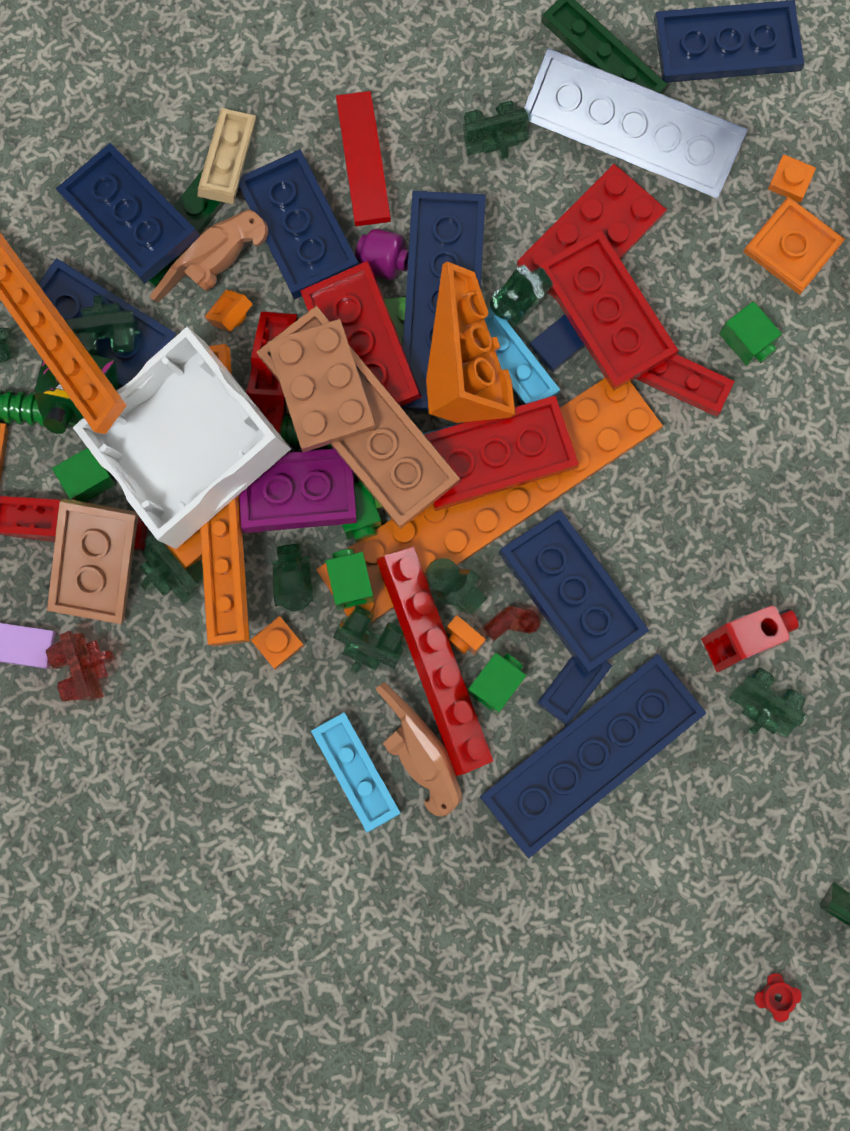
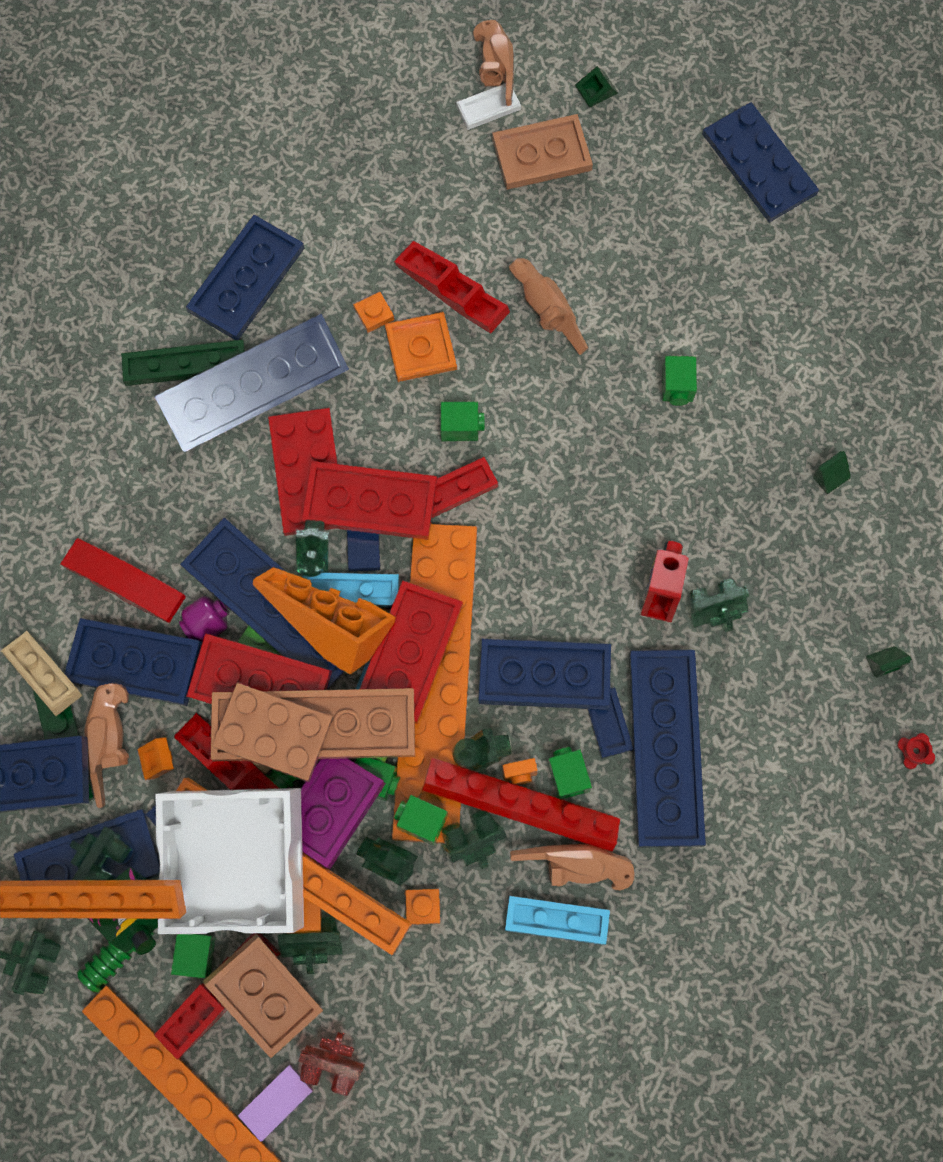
camera: 50 degrees left, 5 degrees down
(495, 132) = (181, 477): clear green hips -> none
(512, 619) = (532, 729): clear red arm -> none

